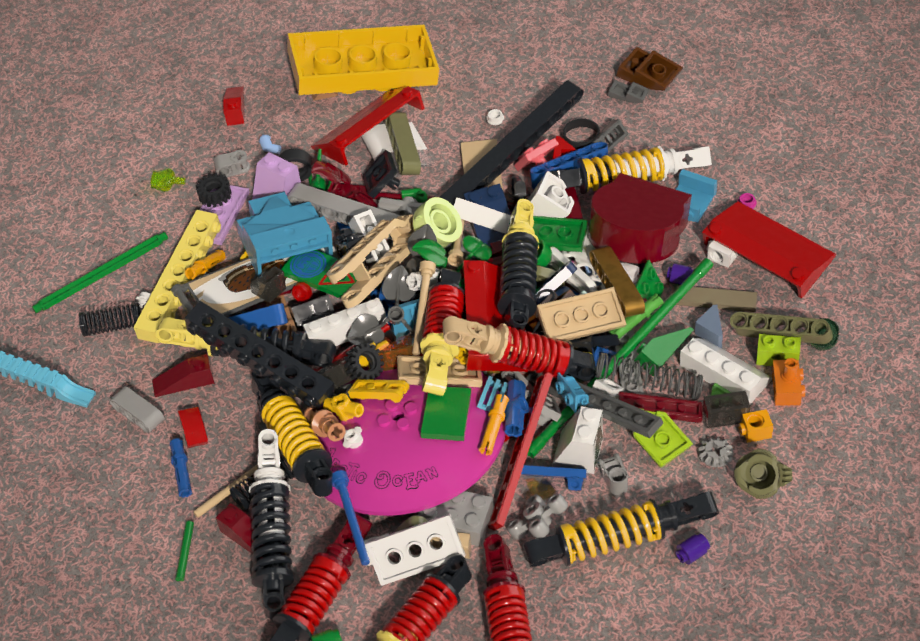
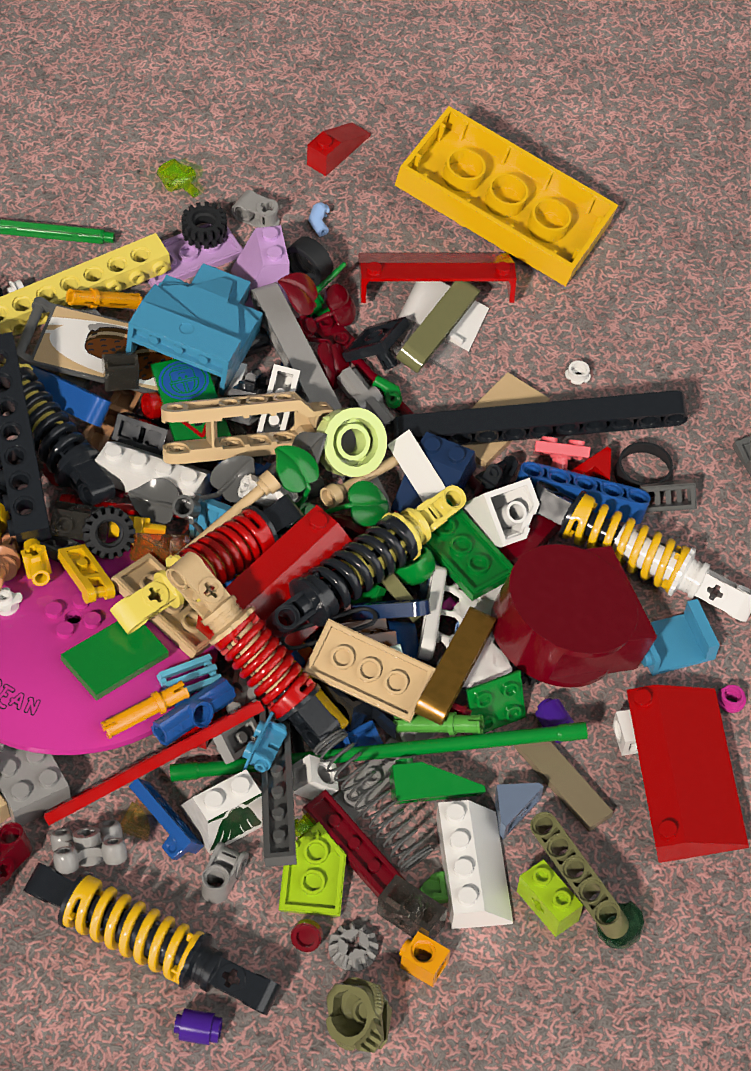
camera: 35 degrees right, 5 degrees up
(689, 464) = (306, 935): none -> dark red tile
(787, 382) = (516, 942): orange brick -> none

